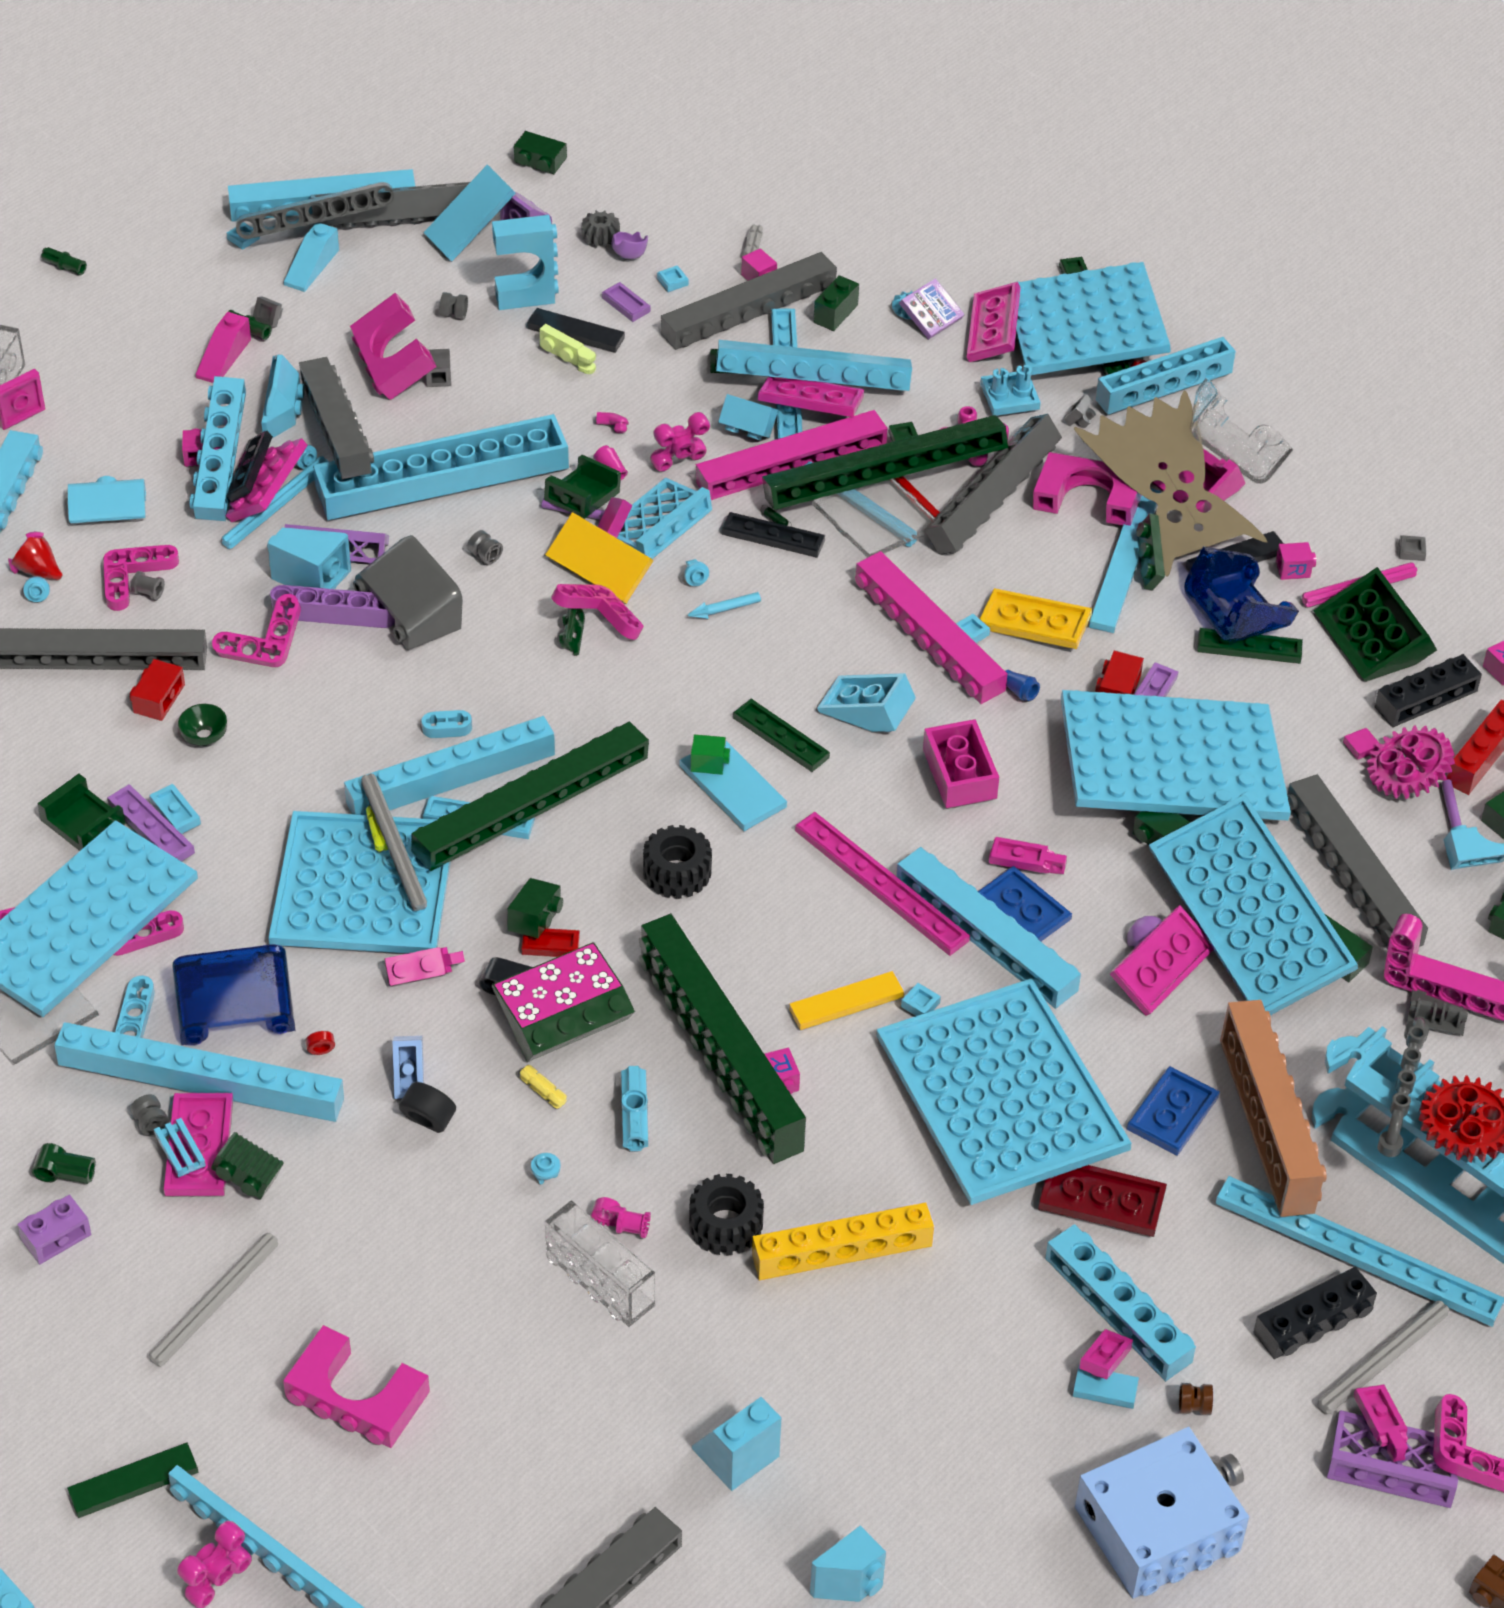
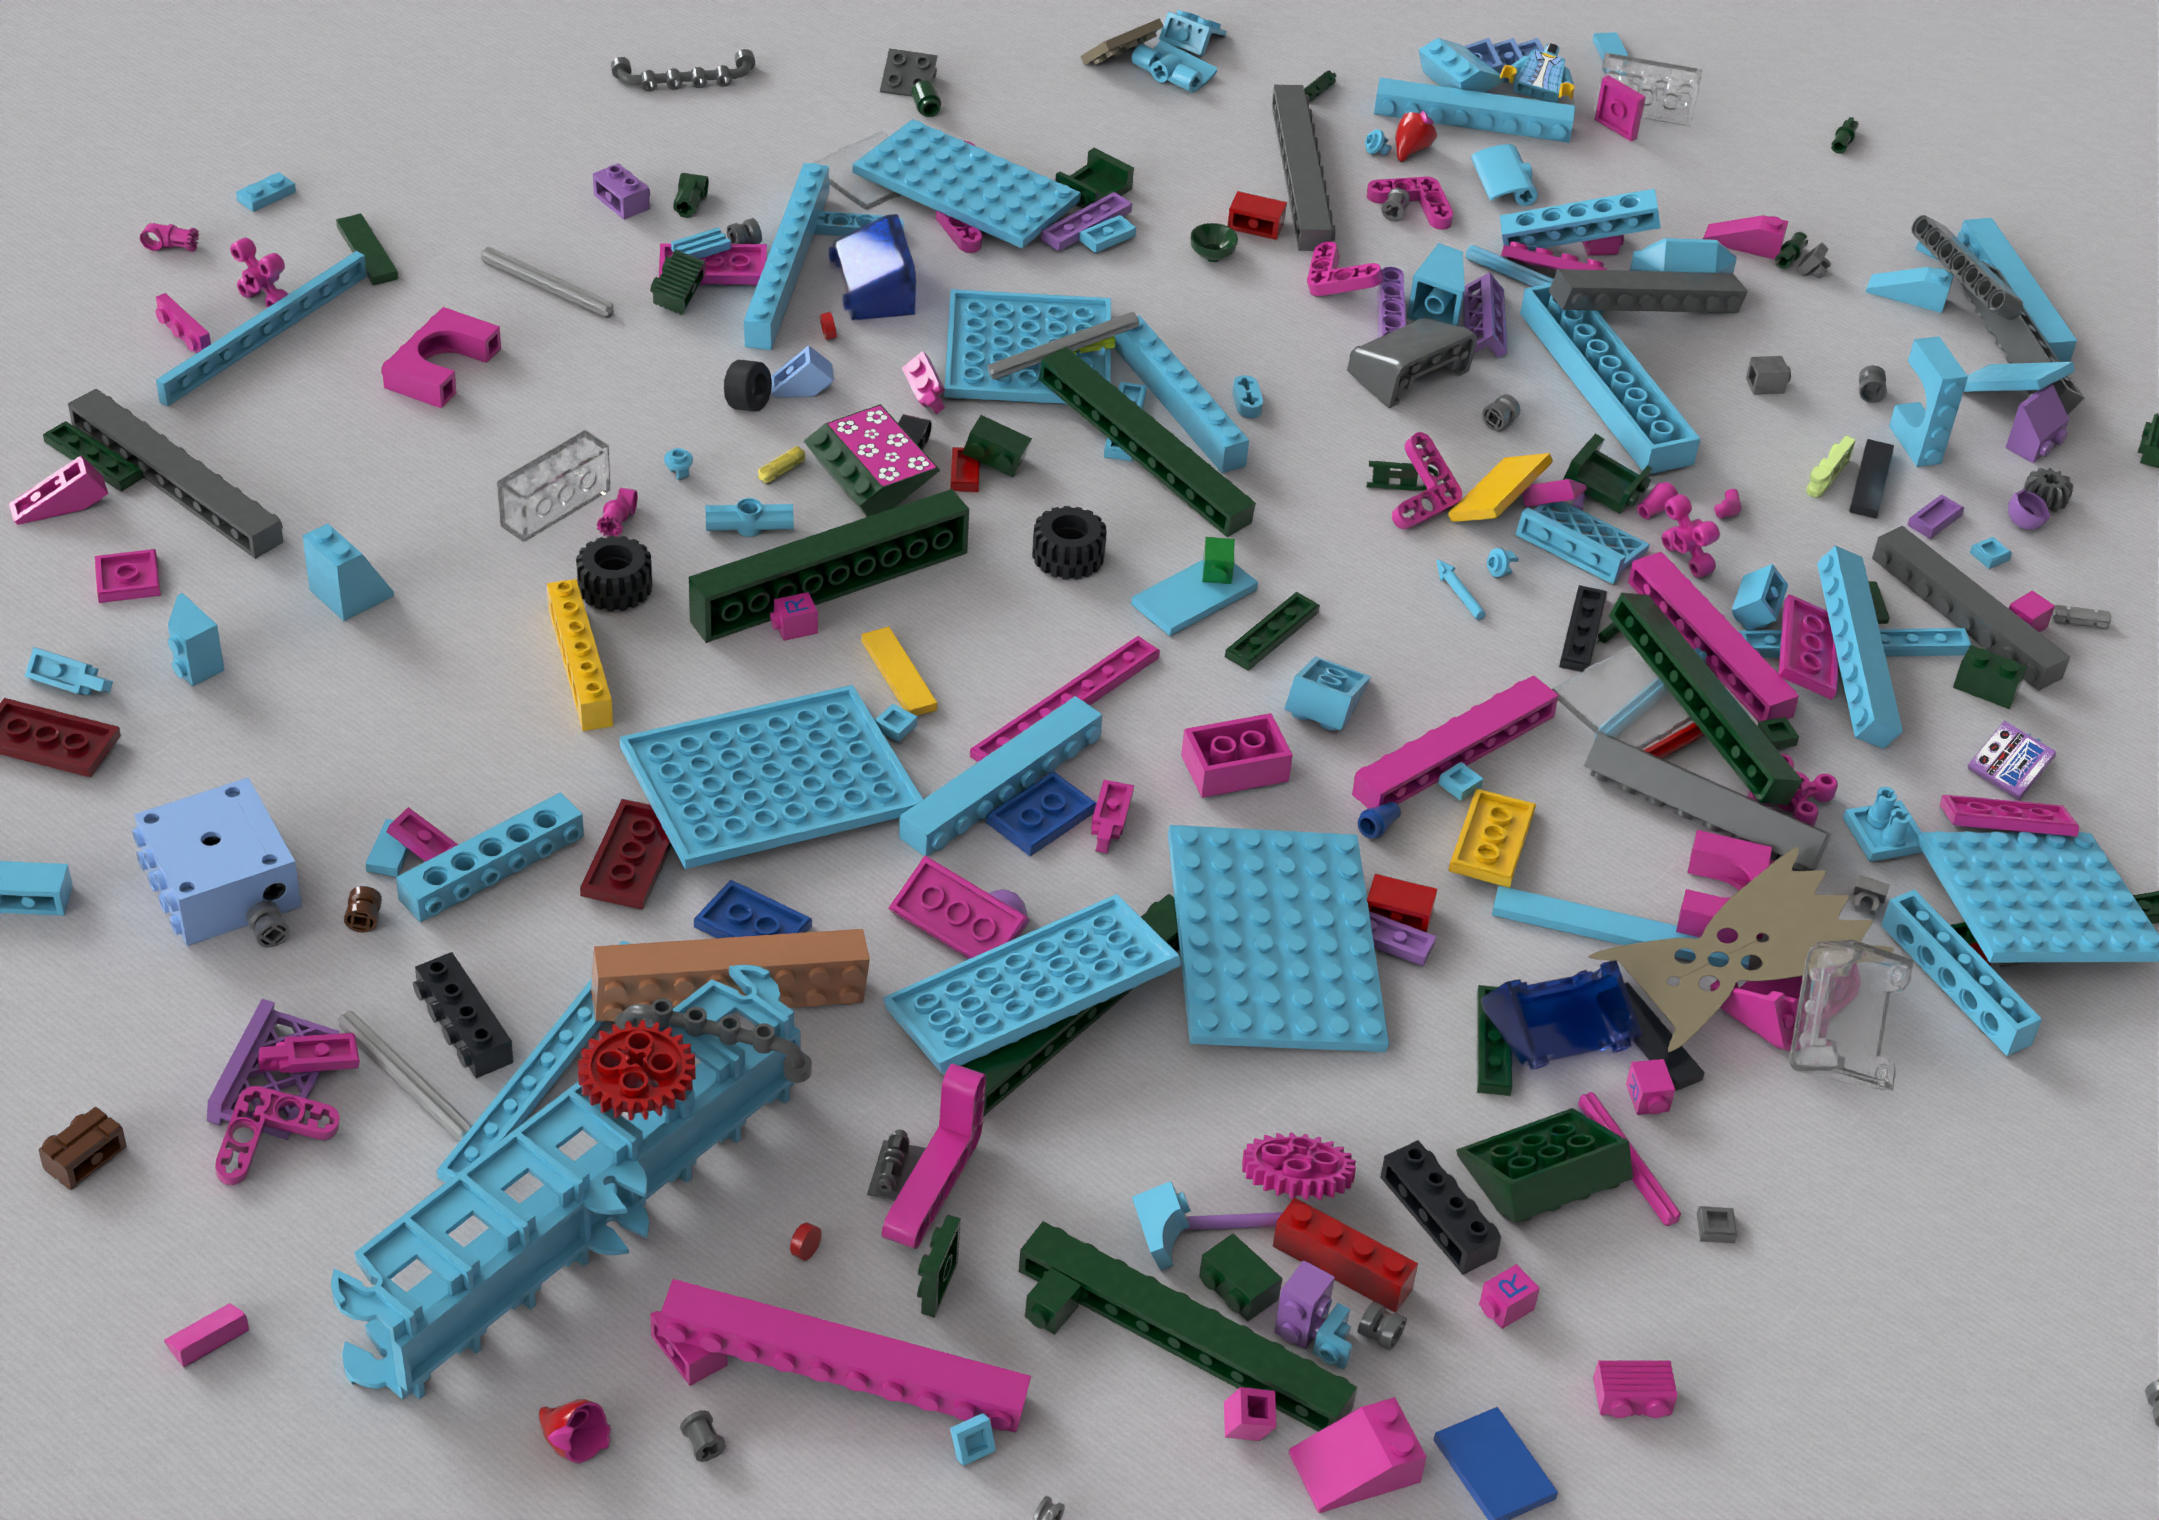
camera: 85 degrees right, 5 degrees down
(249, 466) = (1581, 253): black tile -> none
(372, 335) = (1757, 336): dark pink arch -> none
(1150, 552) = (1594, 940): dark green plate -> none
(1350, 856) = (1127, 1106): dark grey brick -> none
(1360, 743) = (1342, 1133): dark pink tile -> none

